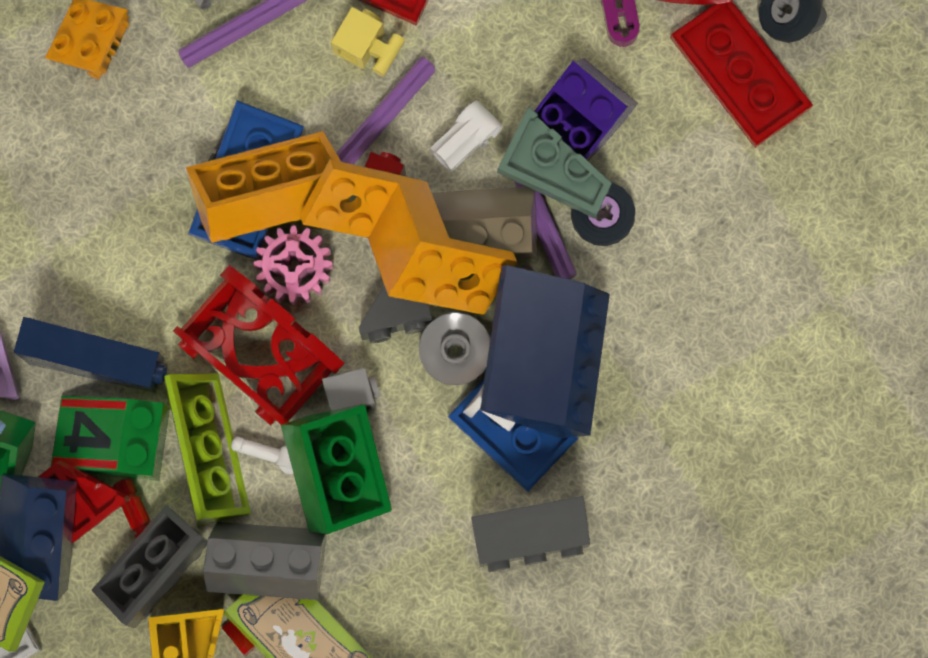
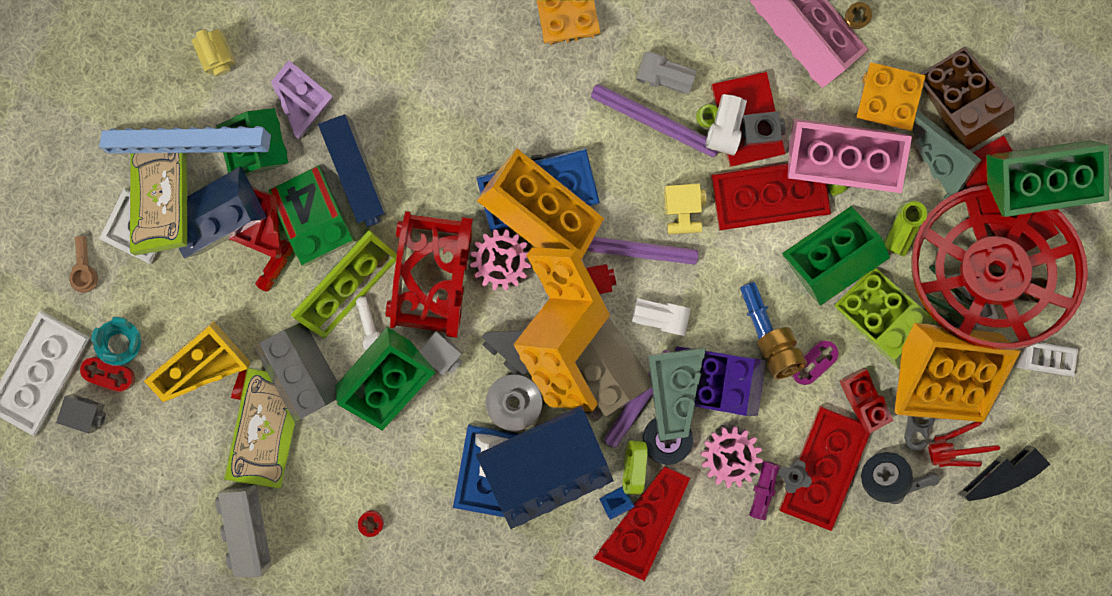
camera: 55 degrees right, 10 degrees up
(150, 567) = (243, 302): dark grey slope -> none
(486, 581) = (364, 528): none -> red bush
(525, 36) = (756, 309): none -> blue axle
(531, 533) = (425, 529): dark grey slope -> none
(585, 34) = (781, 351): none -> pearl gold wheel
(610, 265) = (634, 467): none -> lime beam
(637, 309) = (616, 503): none -> blue slope
(651, 165) = (738, 444): none -> bright pink gear
(685, 302) = (642, 530): none -> red wing
(721, 95) = (788, 472): none -> dark grey plate
(723, 146) = (764, 490): none -> magenta pin

